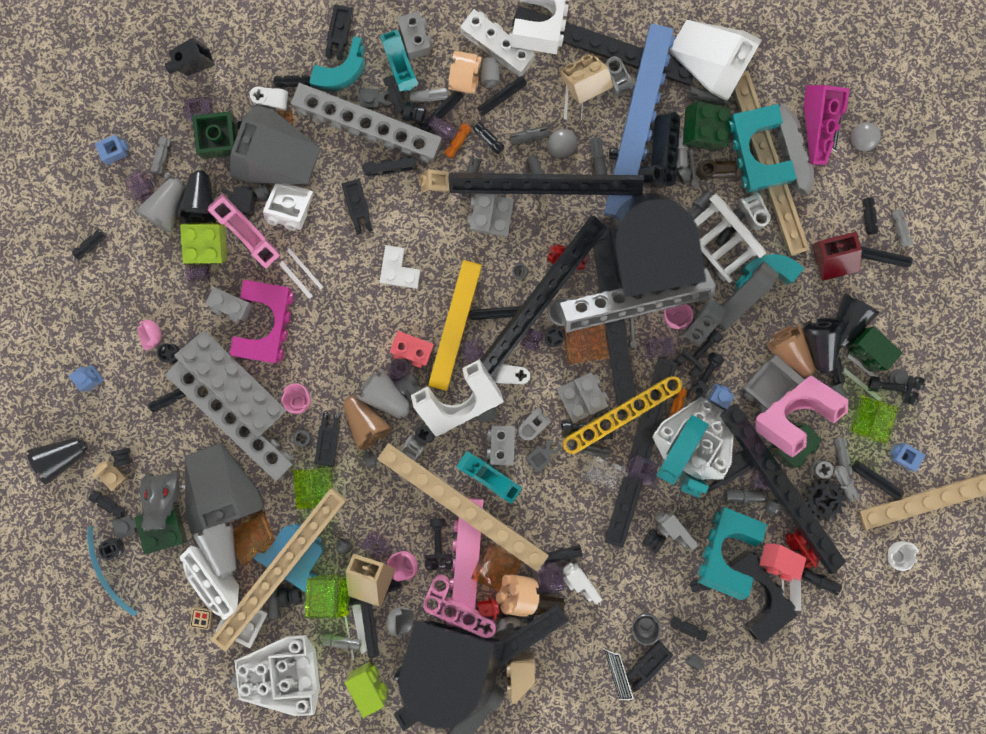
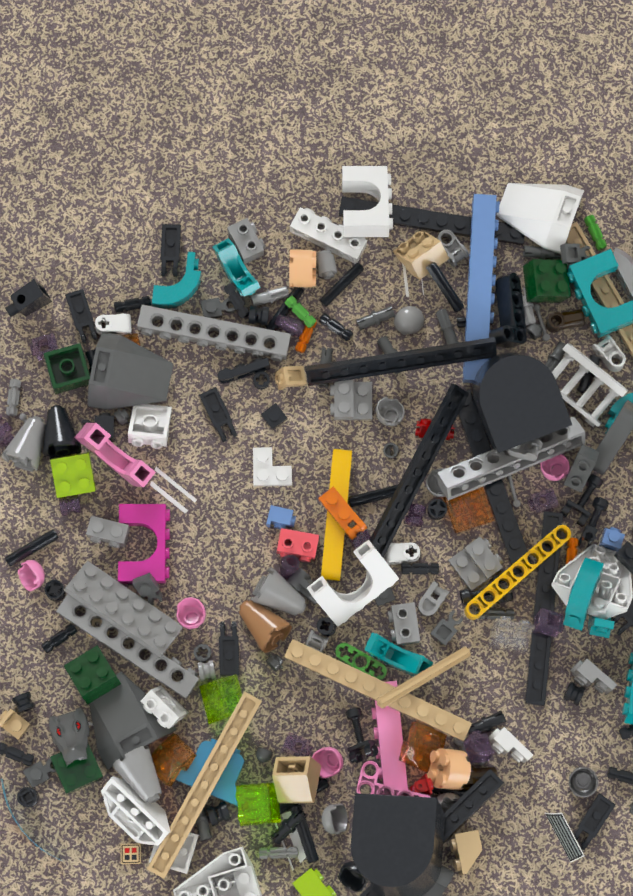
camera: 15 degrees left, 10 degrees down
(154, 307) = (31, 547): none -> black axle
(190, 442) = (92, 674): none -> dark green brick
(239, 82) = (81, 313): none -> black hinge
(253, 486) = (164, 707): none -> white plate
(258, 366) = (147, 586): none -> dark grey plate
(302, 456) = (206, 670): none -> light grey wheel
(354, 620) = (288, 826): none -> black pin
(400, 320) = (280, 518): none -> medium blue brick
(409, 184) = (257, 376): none -> black bush
(412, 217) = (274, 416): none -> black plate
(453, 465) = (359, 653): none -> bright green beam
(455, 116) = (300, 311): none -> bright green axle
(459, 325) = (342, 512): none -> orange plate
(509, 503) = (423, 677): none -> tan axle
(526, 232) = (390, 411): none -> light grey hair
(527, 392) = (419, 568): none -> black axle
(603, 115) = (445, 287): none -> black axle
(657, 301) = (530, 454): none -> light grey plate
(738, 102) = (573, 253): none -> dark grey plate
(764, 85) = (595, 232): none -> bright green axle

